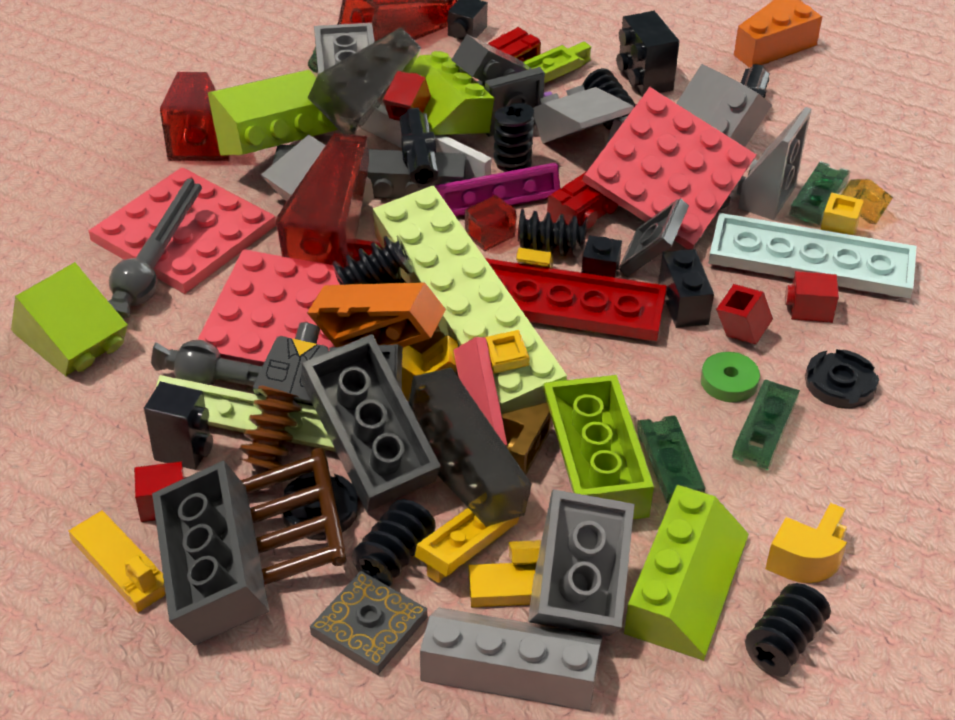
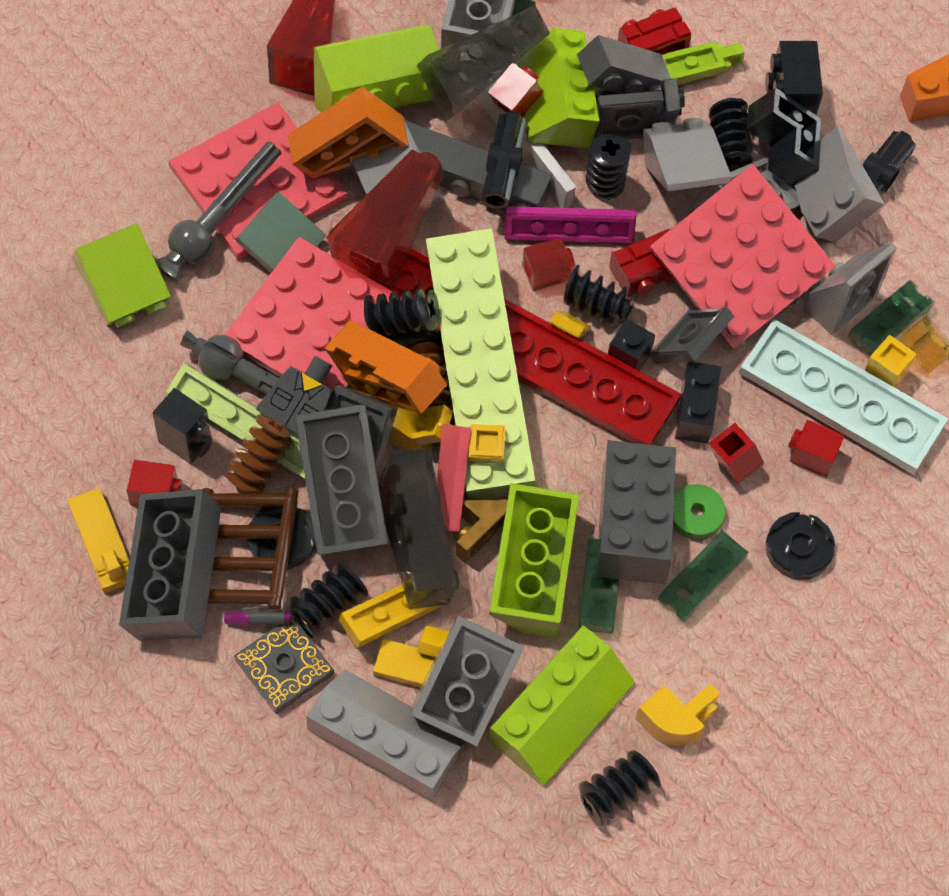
camera: 15 degrees right, 20 degrees up
(216, 253) = (276, 230): none -> sand green tile
(259, 155) = (344, 132): none -> orange wedge
(322, 581) = (255, 616): none -> dark grey piece
(554, 70) = (673, 101): none -> black plate
(649, 69) = (789, 131): none -> black brick
(678, 381) = (636, 512): none -> dark grey brick

